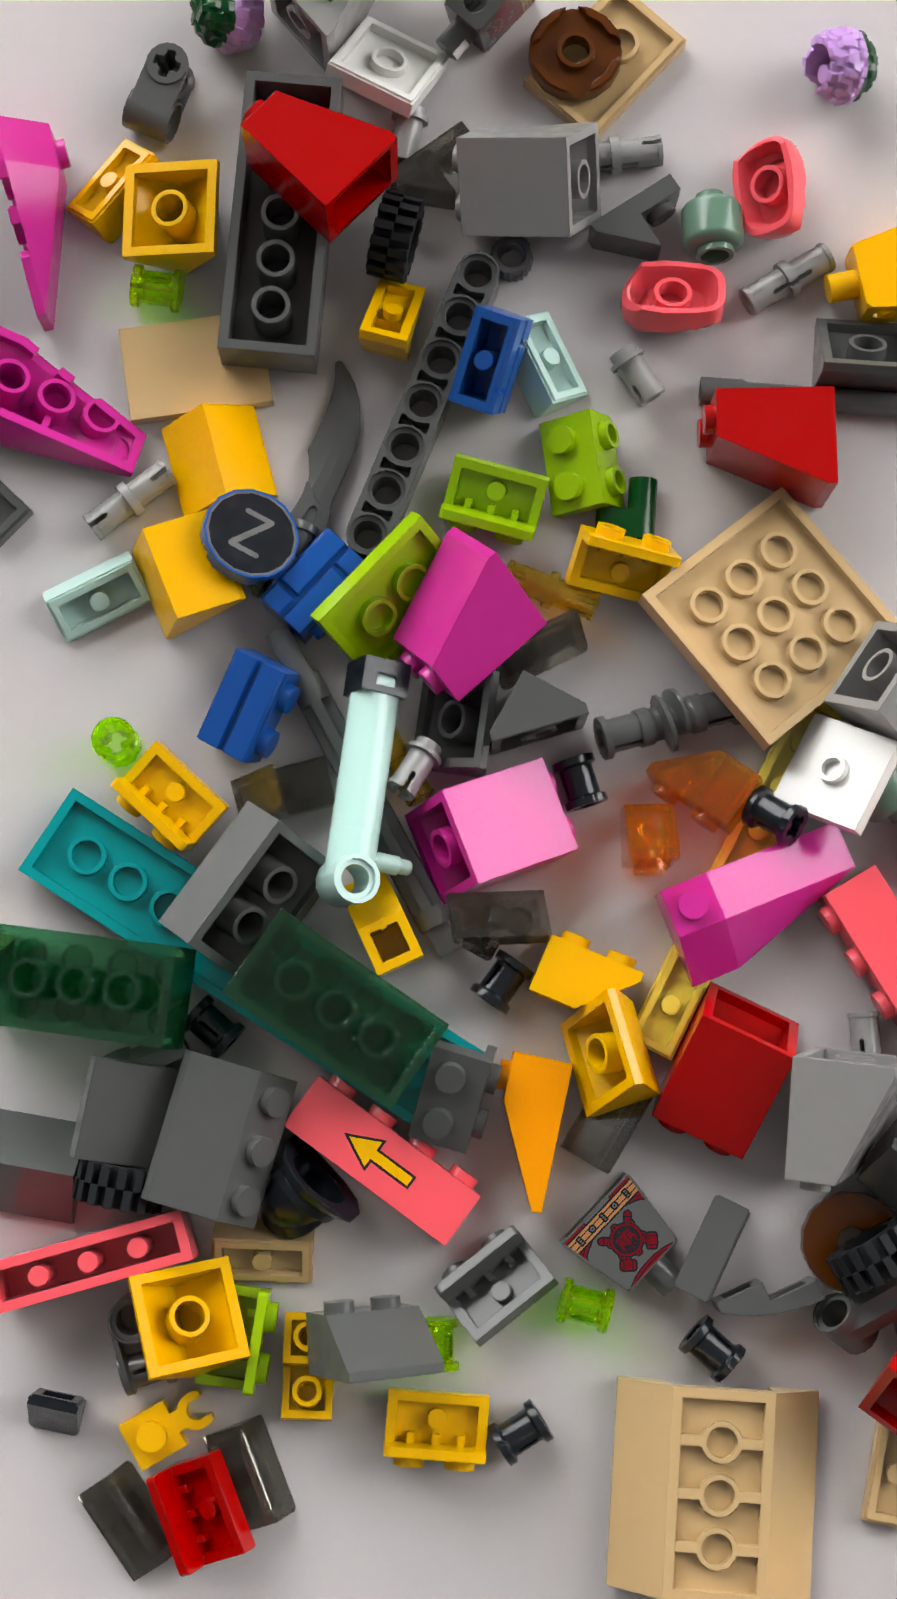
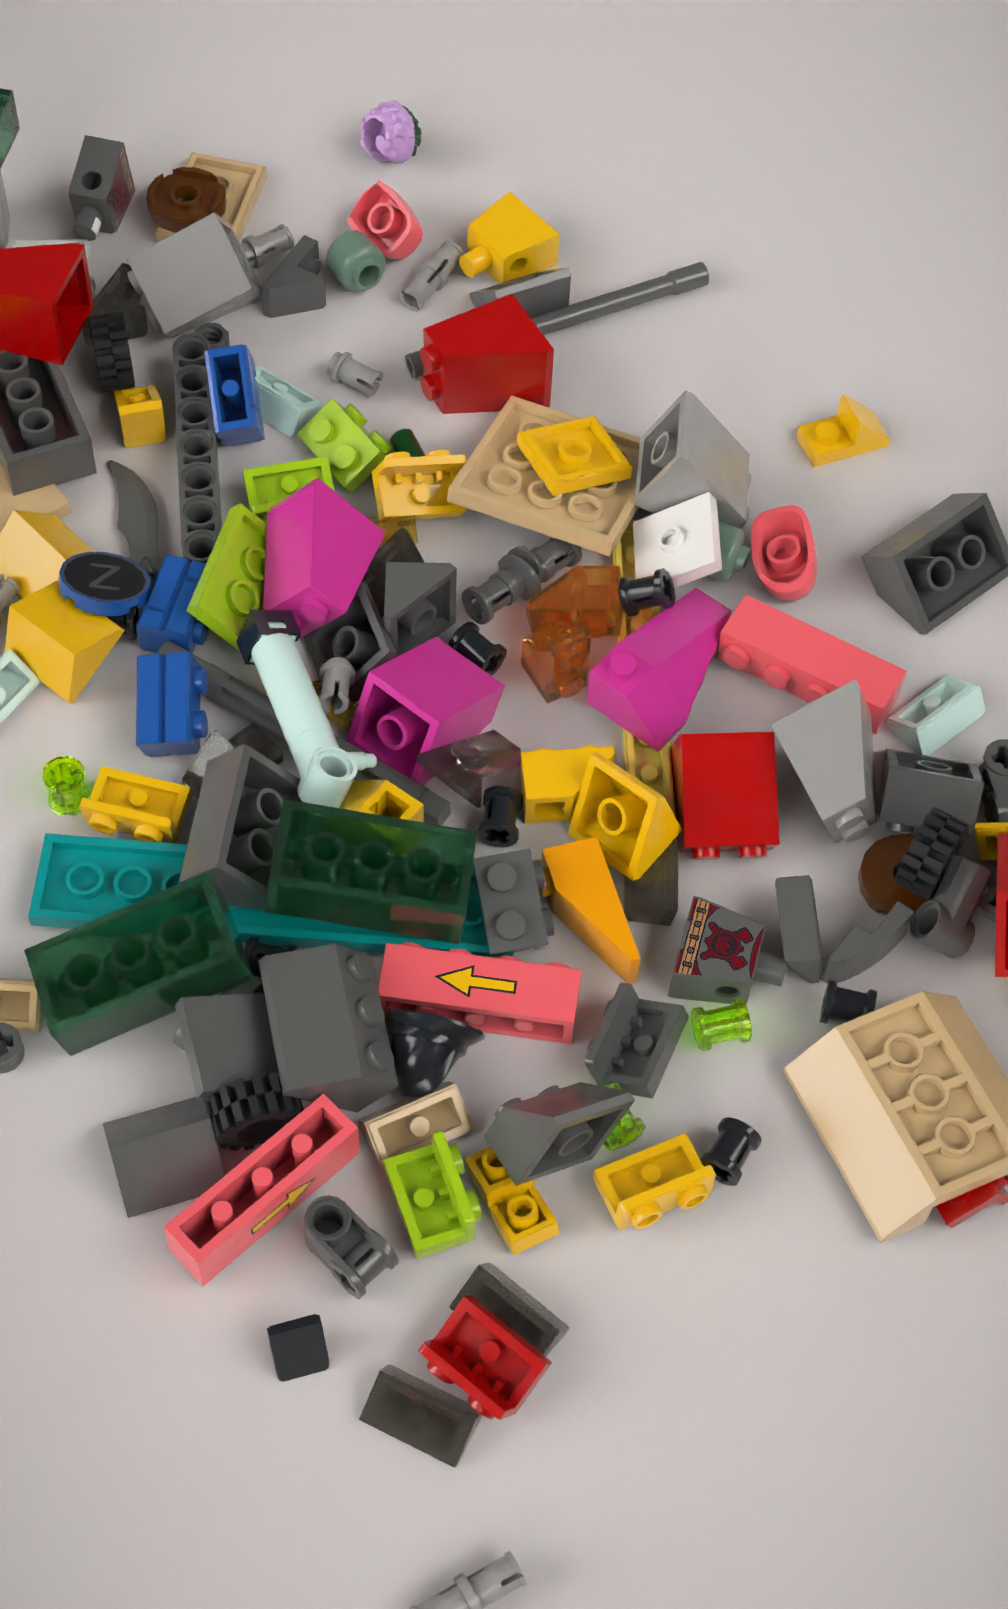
camera: 30 degrees left, 25 degrees down
(159, 1431) = (405, 1319): yellow plate -> none
(188, 1319) = (385, 1185): yellow slope -> none
(673, 297) = (353, 313): coral piece -> none
(797, 608) = (574, 455): none -> yellow tile

